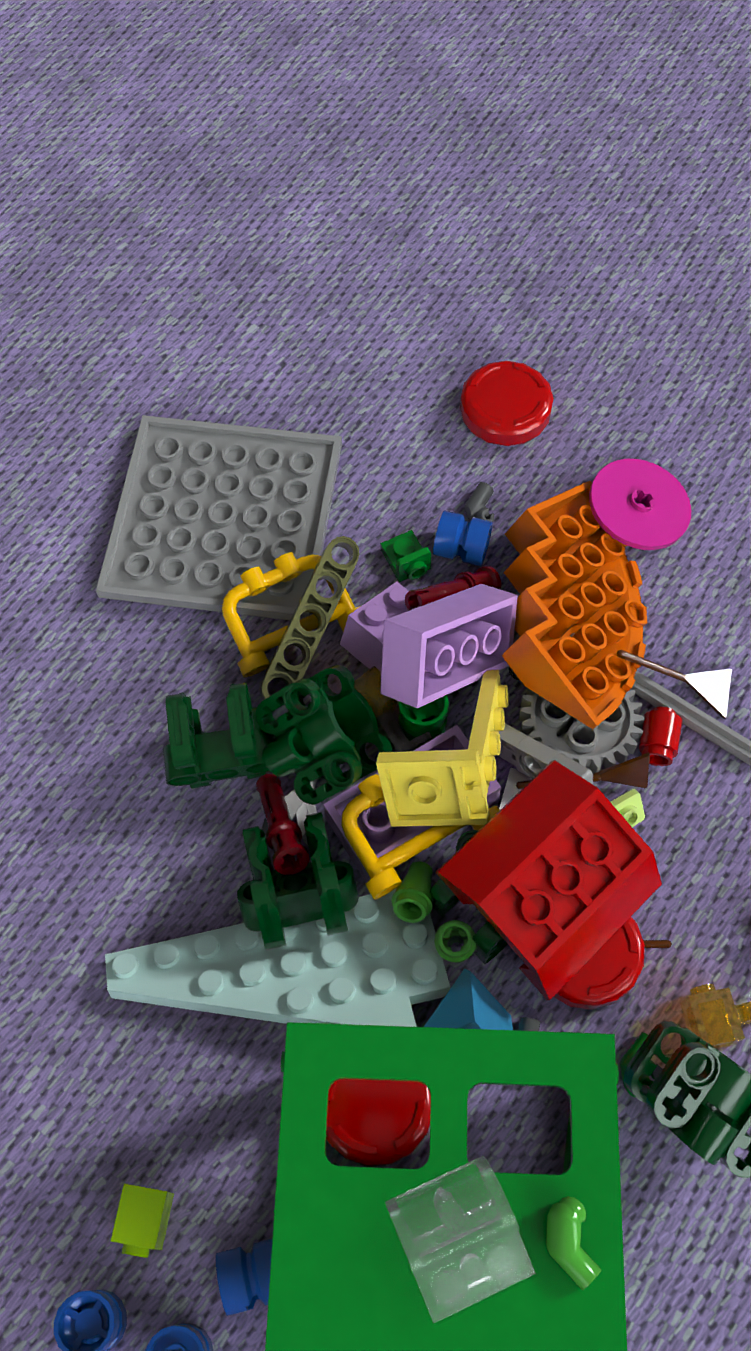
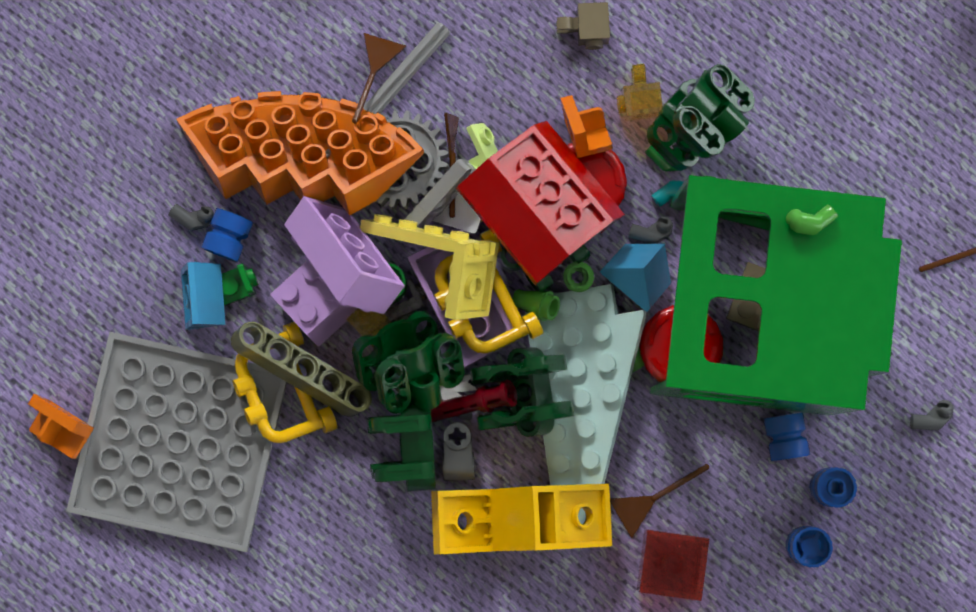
camera: 90 degrees left, 20 degrees up
(67, 1111) = (672, 564): none -> clear red brick
(127, 897) = (521, 518): none -> yellow bracket
(142, 1219) = (746, 512): lime brick -> none
(149, 1058) = (634, 509): none -> reddish brown piece
(213, 817) = (458, 459): none -> dark grey piece
(235, 398) = (58, 427): none -> orange panel
(389, 514) = (202, 295): none -> dark azure slope
(460, 1238) = (804, 286): clear brick -> none
(485, 575) = (279, 239): dark red pin -> none
(506, 403) = (87, 181): red piece -> none
(633, 524) = (182, 84): dark pink piece -> none
(659, 939) = (585, 128): none -> orange panel
(661, 735) = (421, 100): red brick -> none

